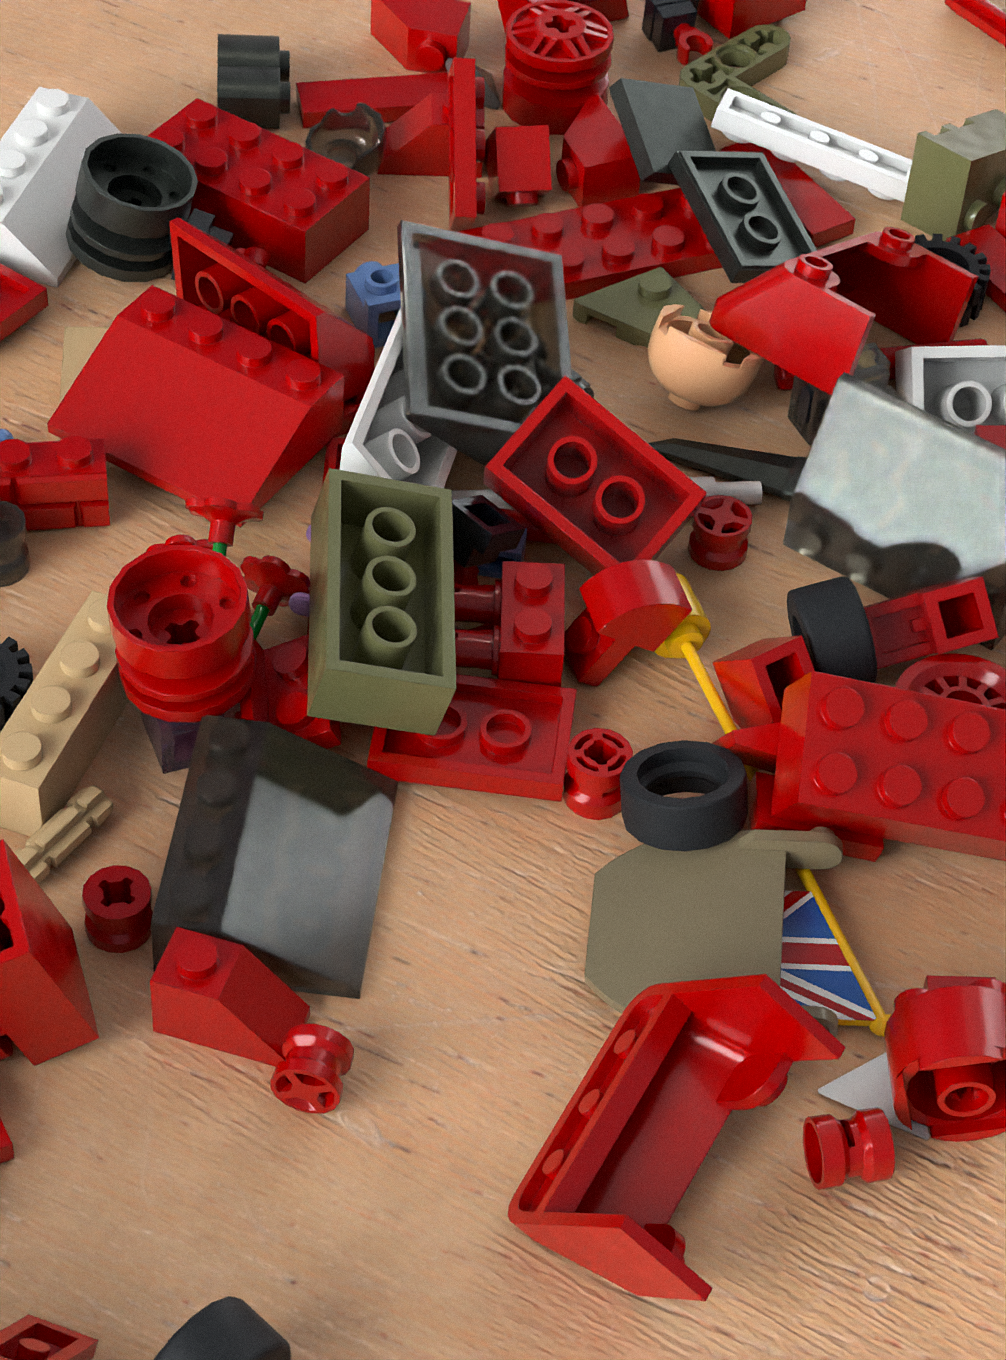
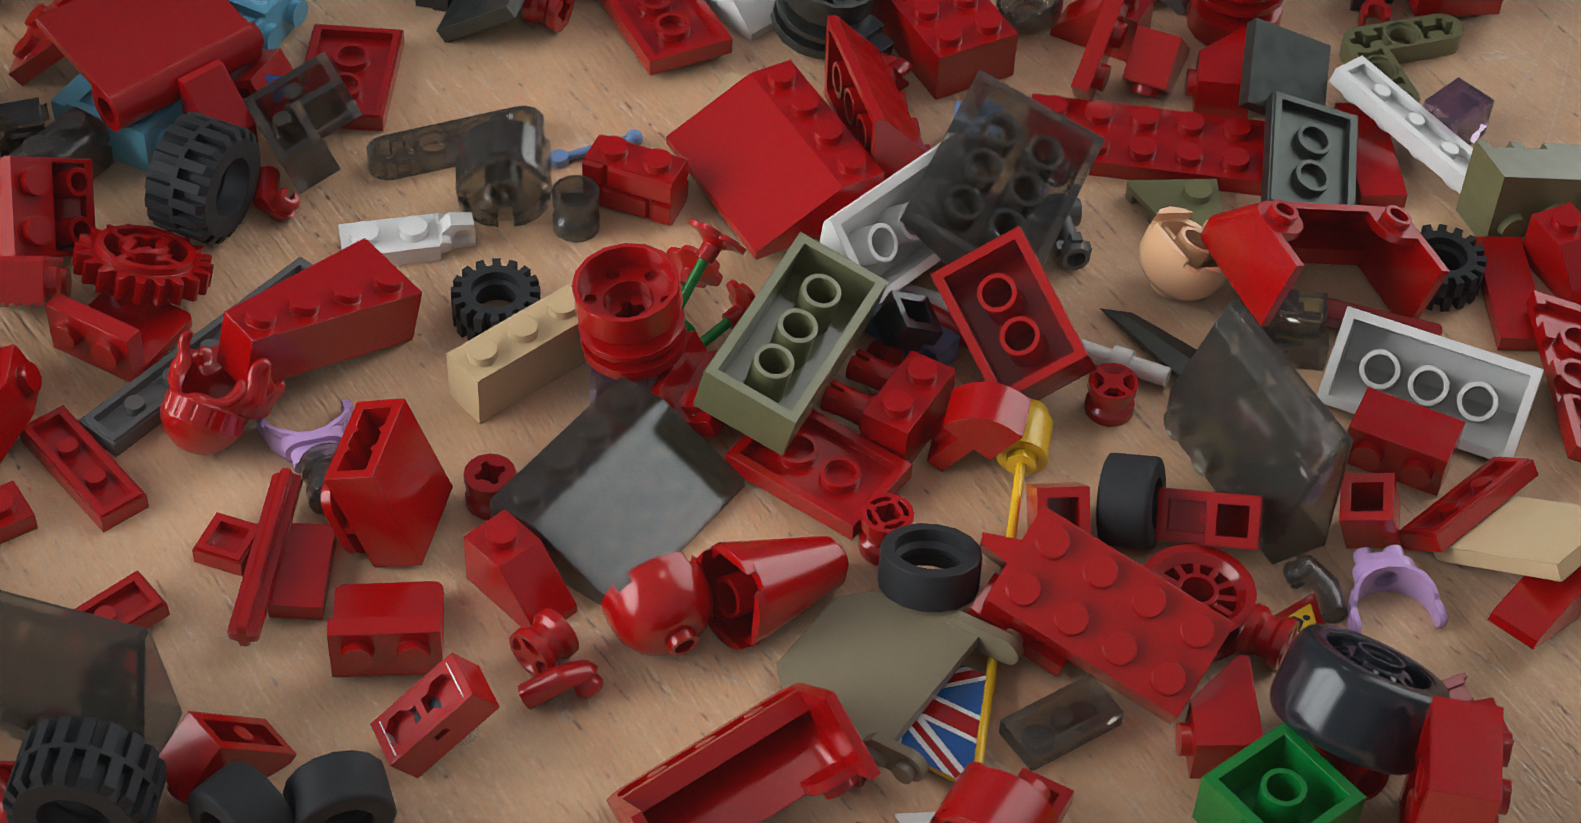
camera: 30 degrees right, 0 degrees up
(64, 831) = (485, 424): tan axle -> none
(114, 1133) = (386, 629): none -> red bracket
(256, 1214) = (435, 716): none -> red piece
(373, 1092) = (559, 679): none -> red arm
(432, 967) = (662, 606): none -> red cylinder
(517, 895) = (769, 583): none -> red cone
(849, 110) = (1461, 109): none -> clear purple brick
(922, 909) = (1060, 722): none -> clear smoke plate

